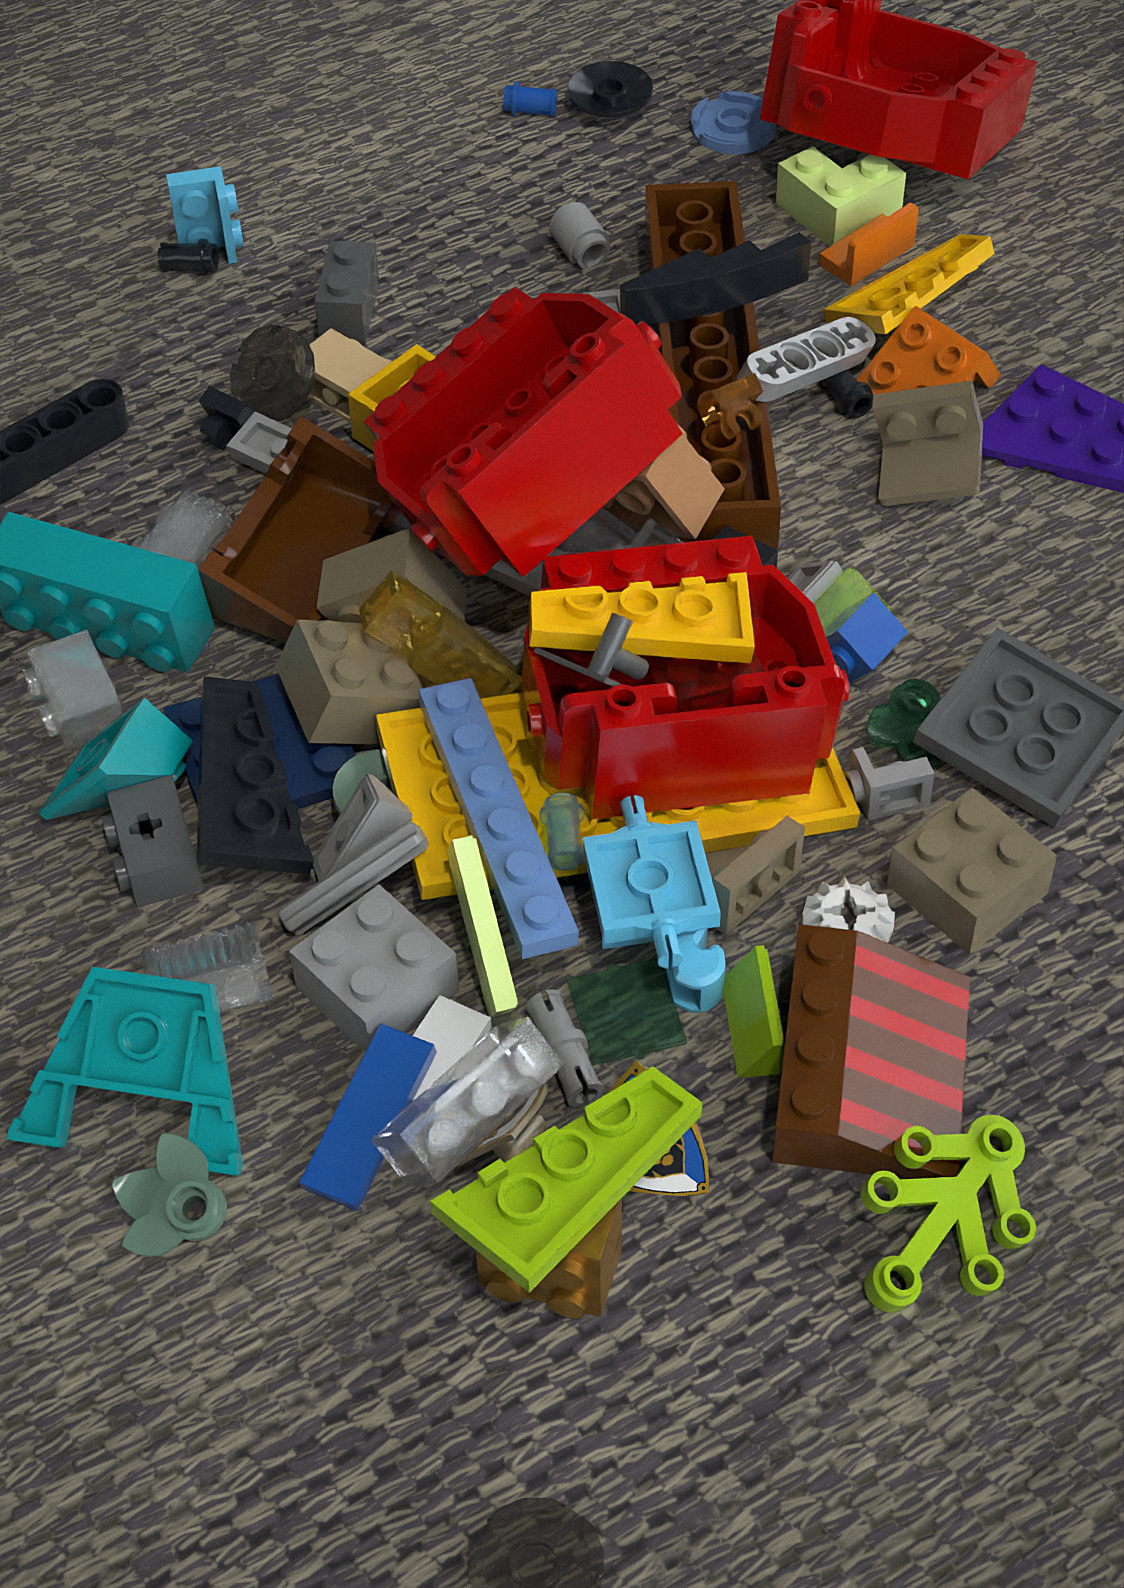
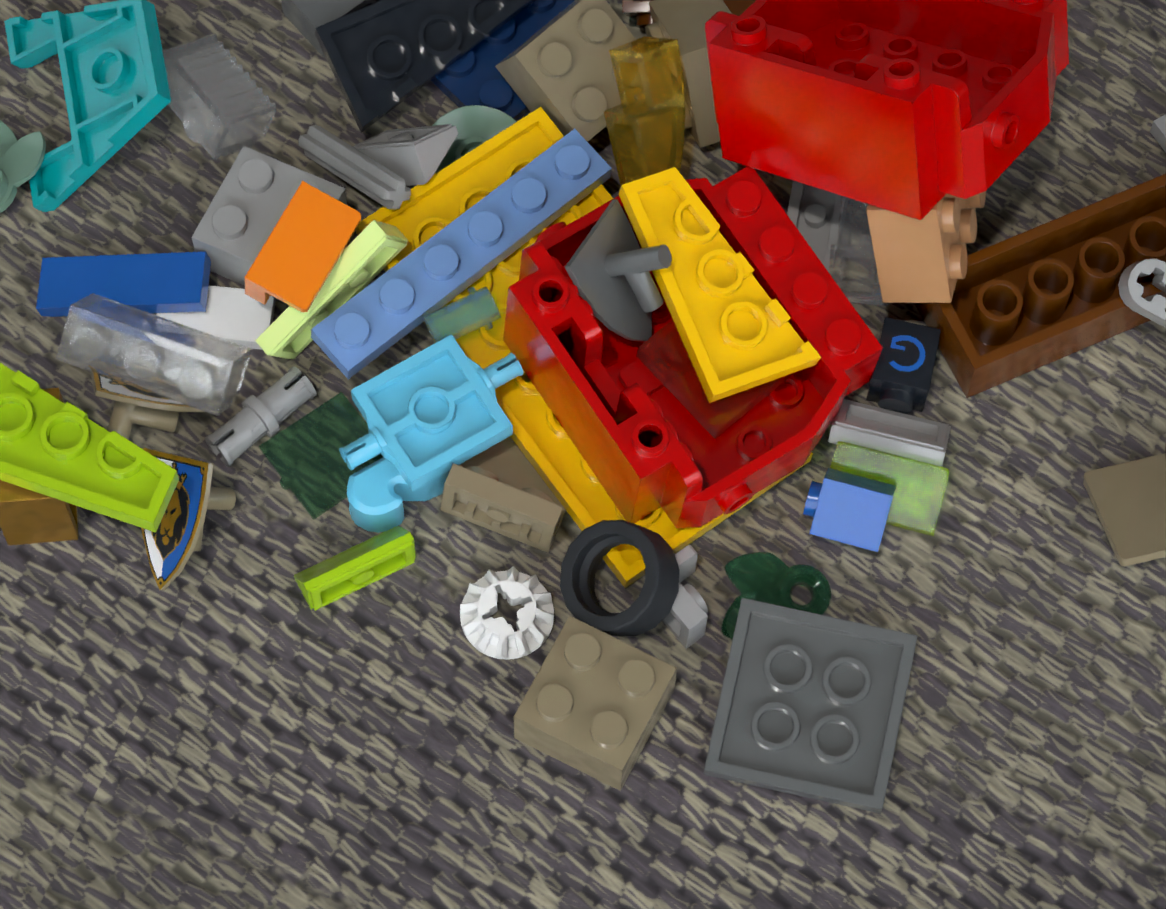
camera: 65 degrees right, 15 degrees up
(442, 918) = (302, 249): none -> orange panel
(731, 401) = (1085, 267): clear orange tile -> none
(869, 1055) = (345, 679): reddish brown slope -> none
(871, 759) = (581, 565): none -> black tyre
(954, 1203) = (214, 794): lime plant -> none

